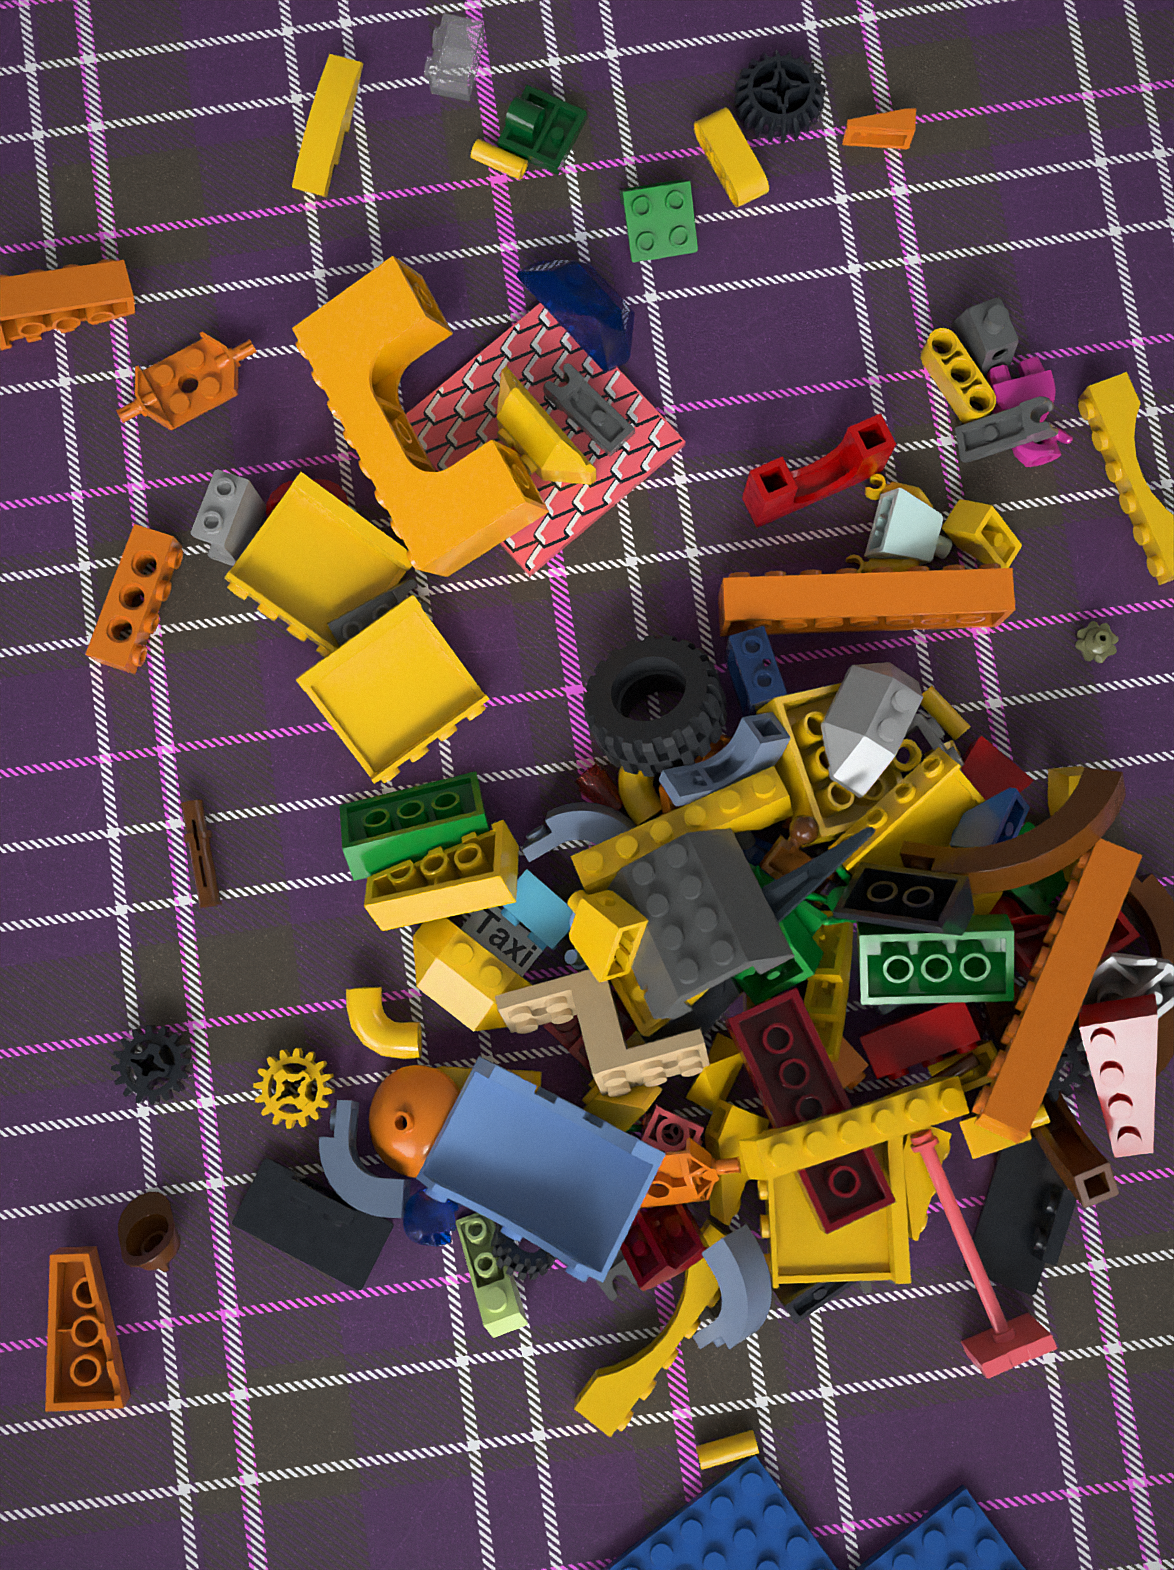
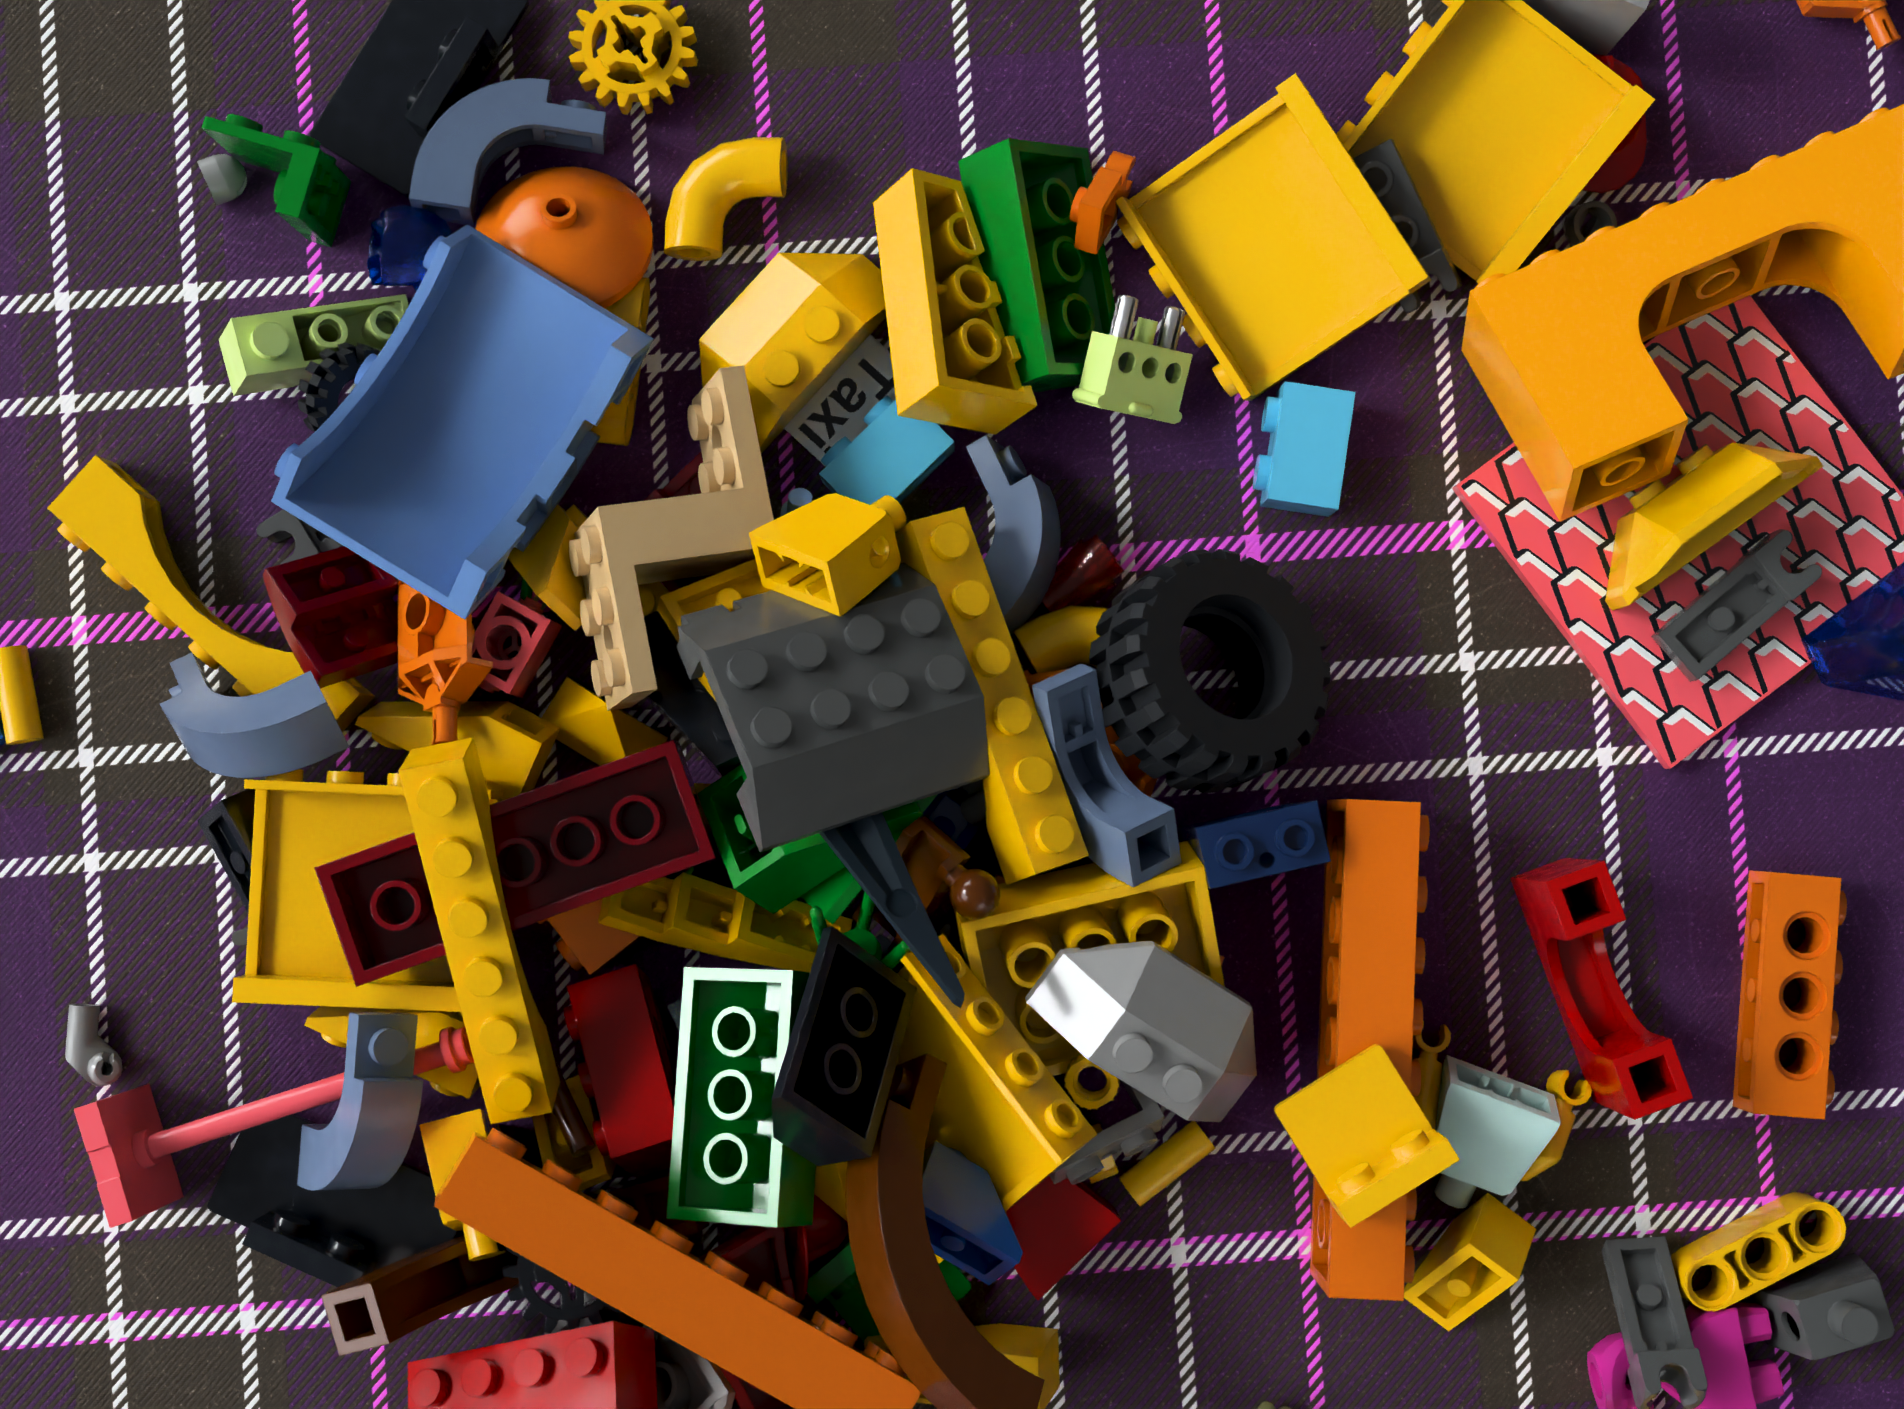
camera: 90 degrees right, 5 degrees up
(371, 504) = (1602, 217): none -> dark grey hinge
(378, 795) = (1095, 206): none -> orange plate
(389, 1344) = (223, 176): none -> light grey hinge
(400, 1285) = (309, 185): none -> green bracket
(477, 762) = (1134, 373): none -> yellowish green piece
(514, 662) = (1305, 448): none -> medium azure brick
(794, 379) = (1764, 1019): none -> orange brick
(922, 594) = (1364, 1135): none -> yellow bracket
(944, 1382) = (87, 1050): none -> light grey arm
(967, 1186) = (375, 1109): none -> sand blue arch

